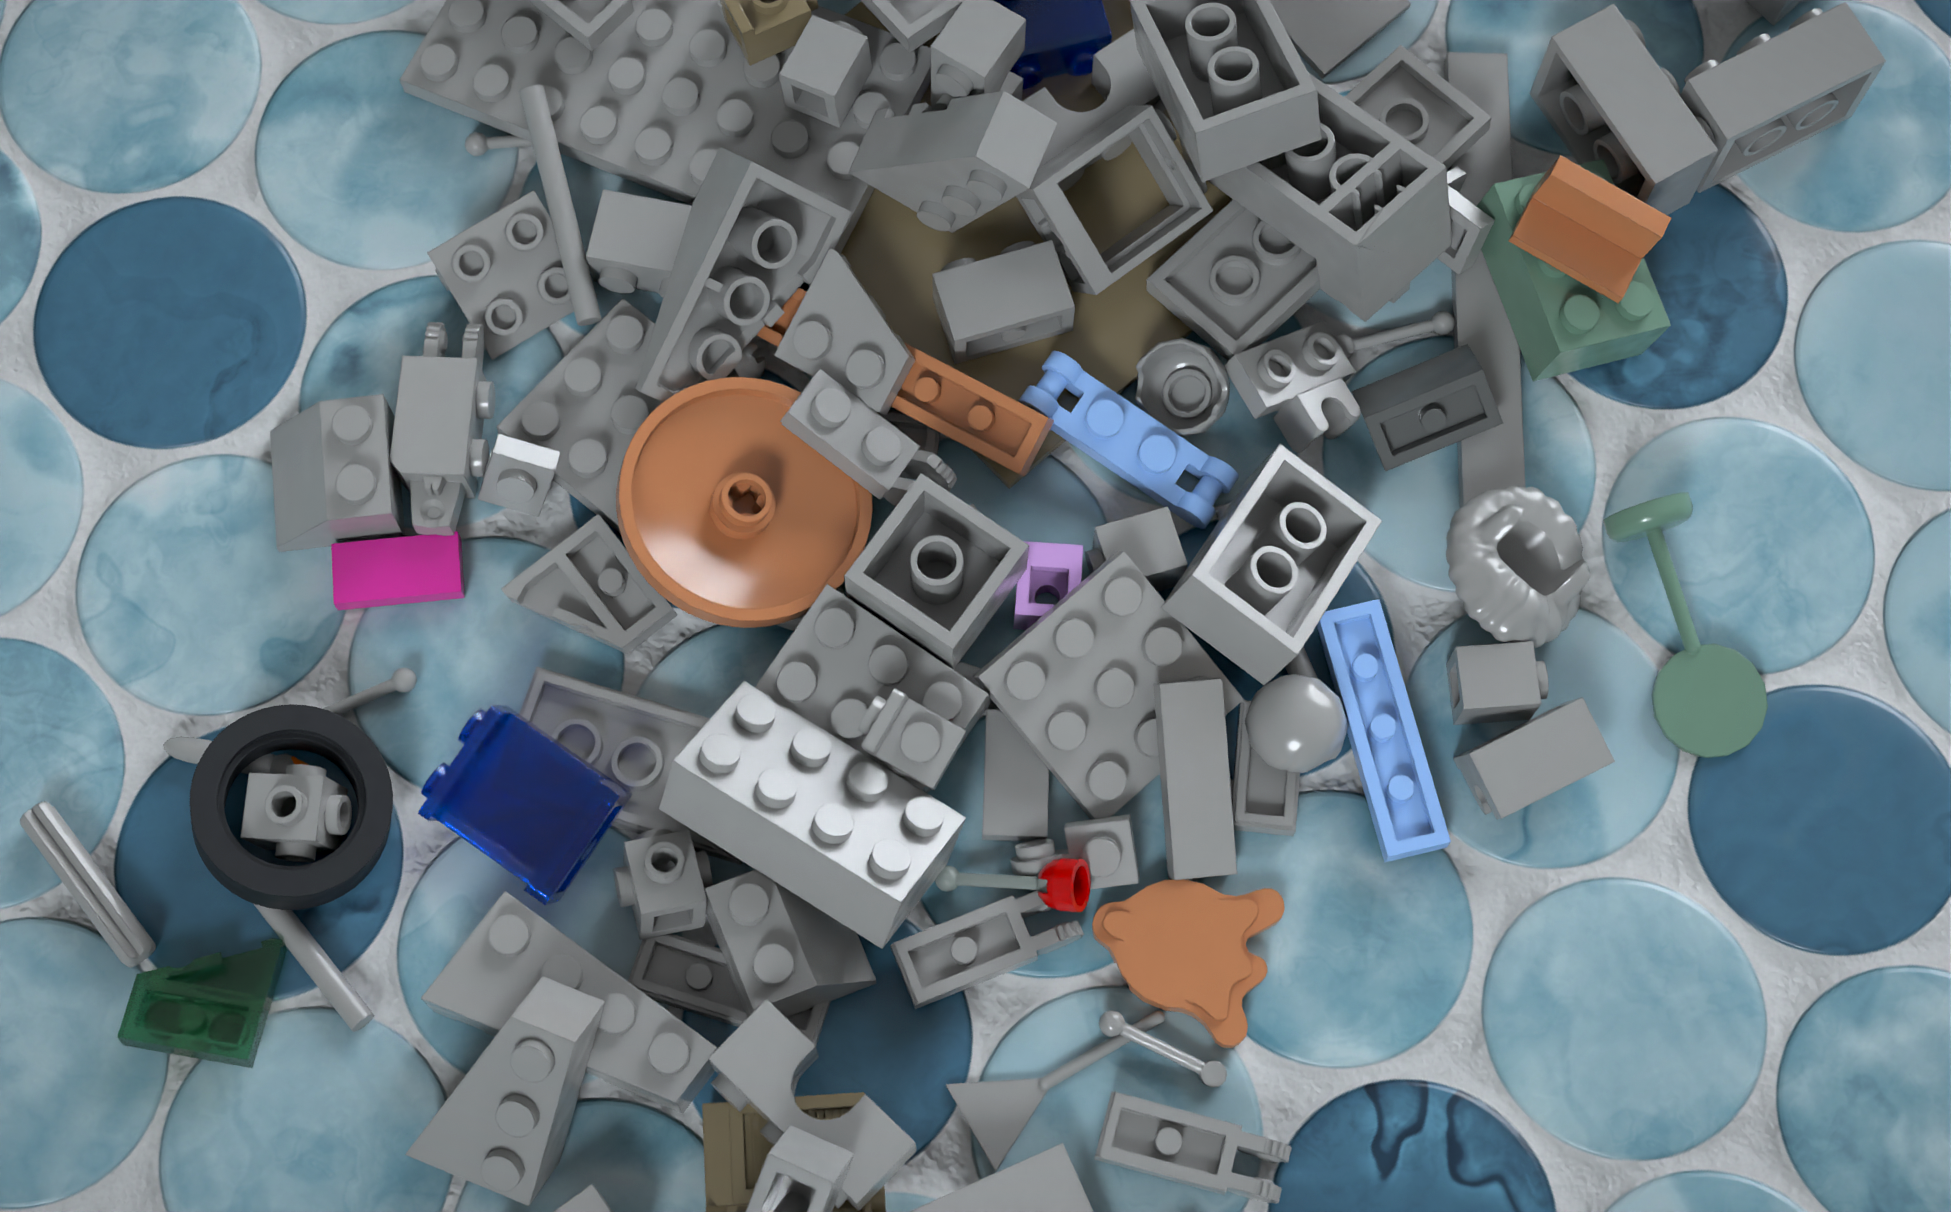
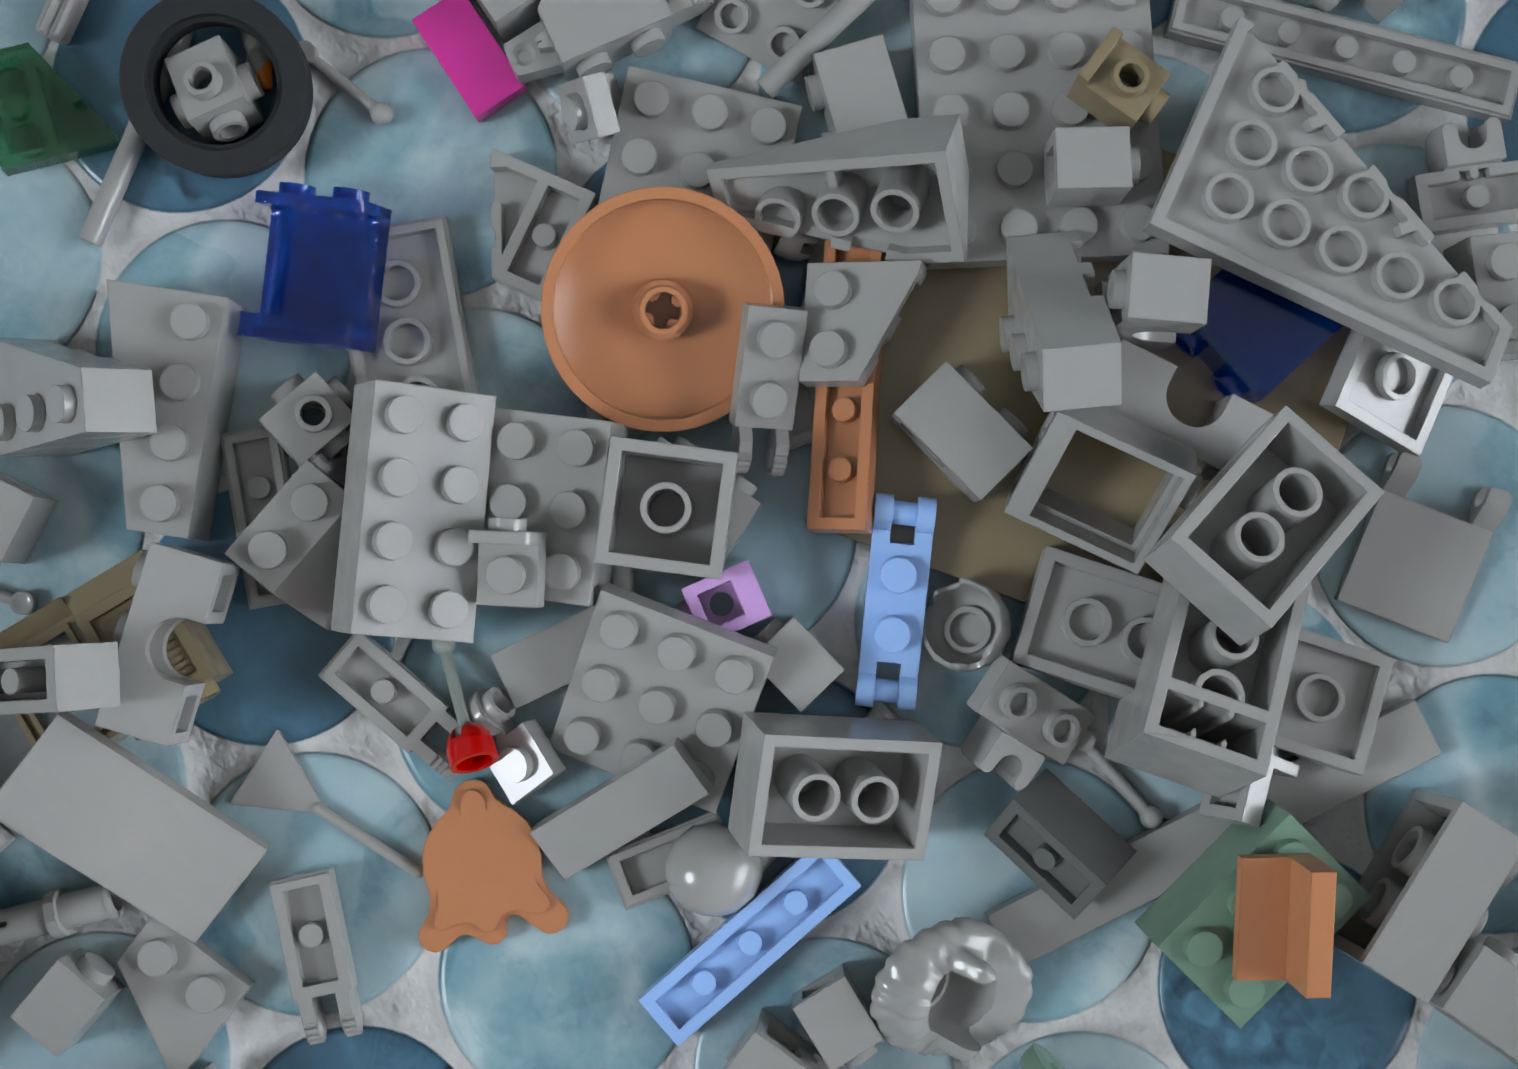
camera: 60 degrees right, 15 degrees up
(1211, 1072) = (394, 937): light grey hinge -> none

